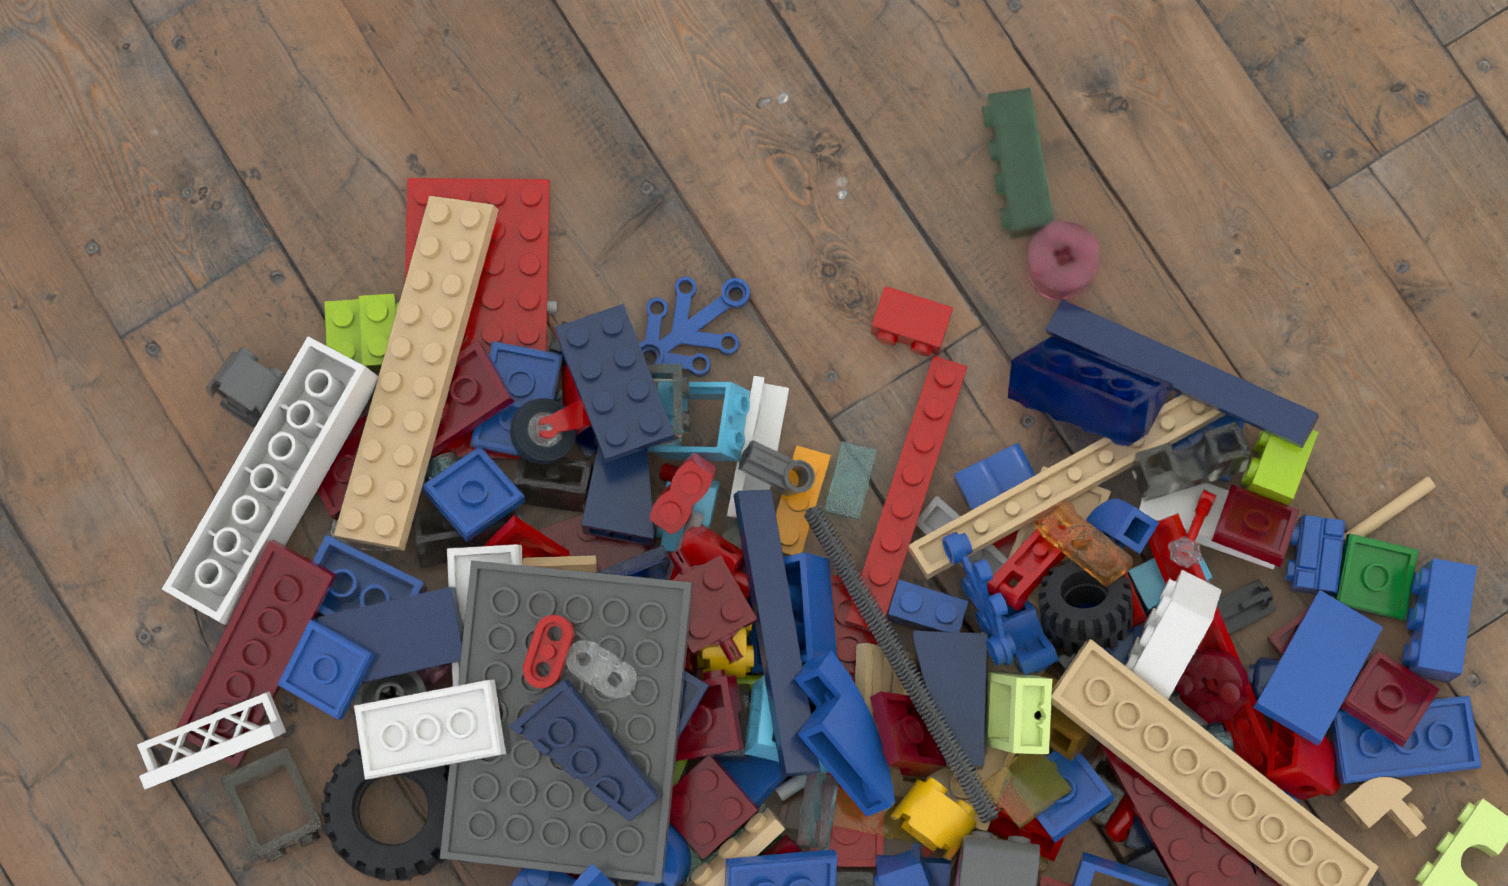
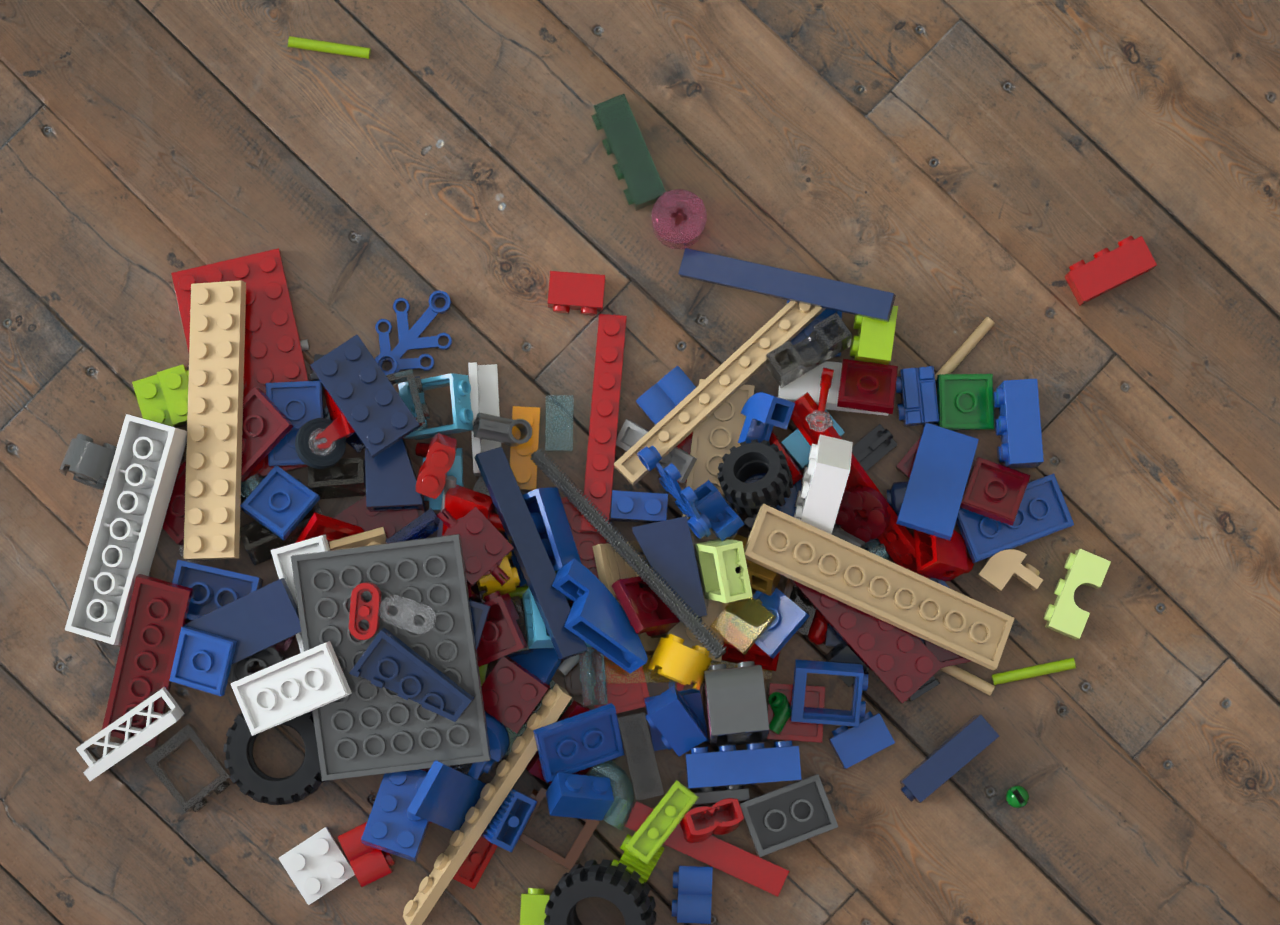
camera: 15 degrees left, 5 degrees up
(1027, 567) = (708, 454): red plate -> none
(1084, 544) = (743, 432): clear orange plate -> none
(1087, 390) = (720, 314): clear blue slope -> none

